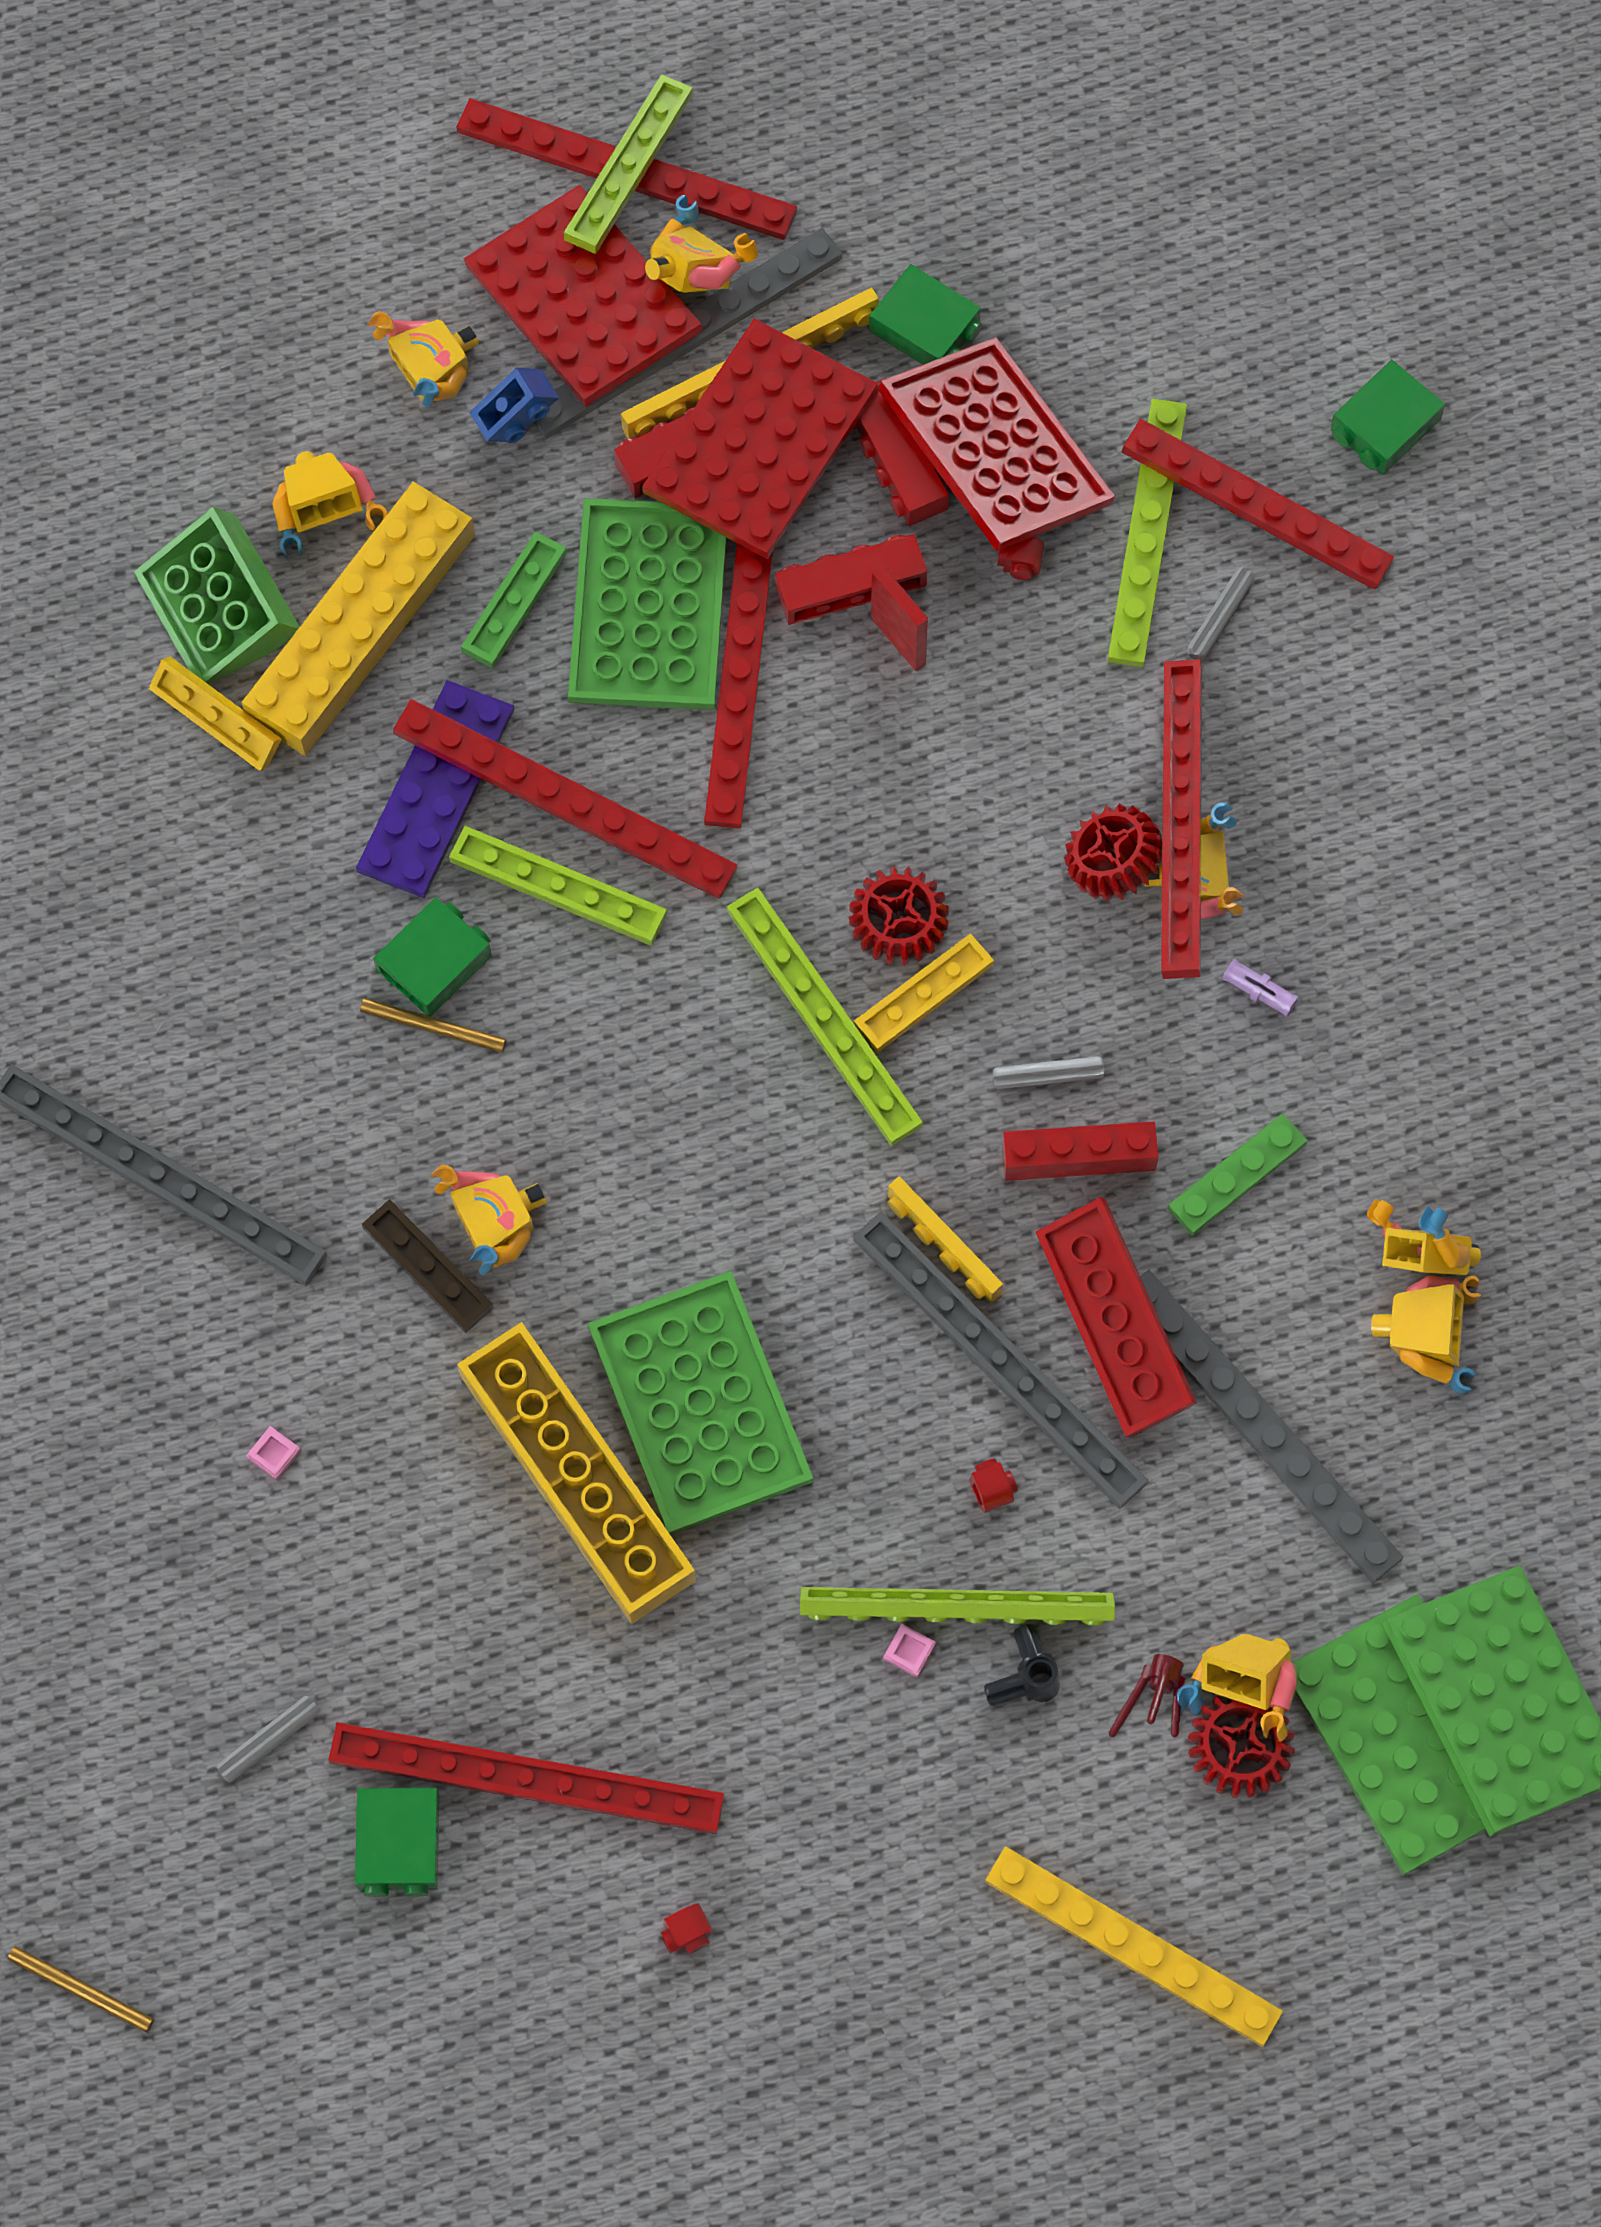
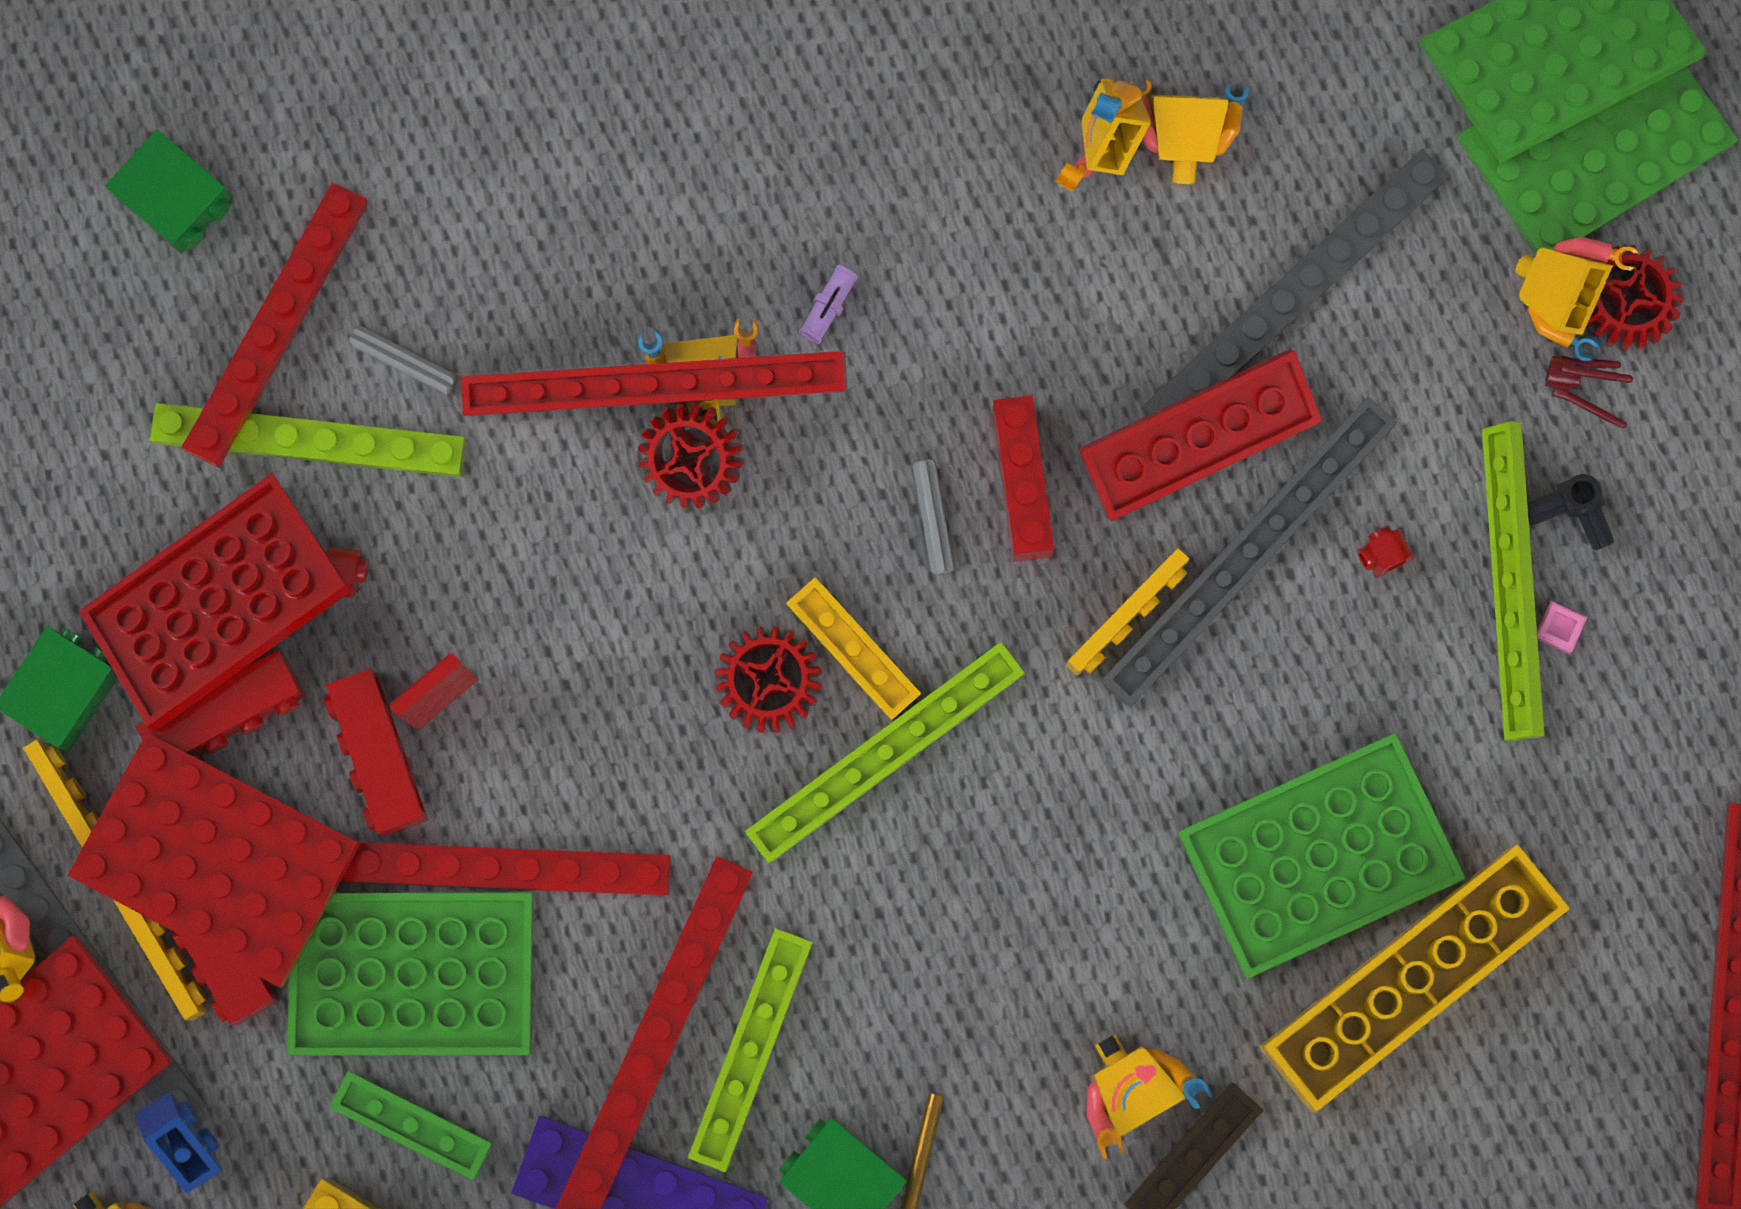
camera: 90 degrees left, 10 degrees up
(1237, 1174) = (1031, 322): bright green plate -> none

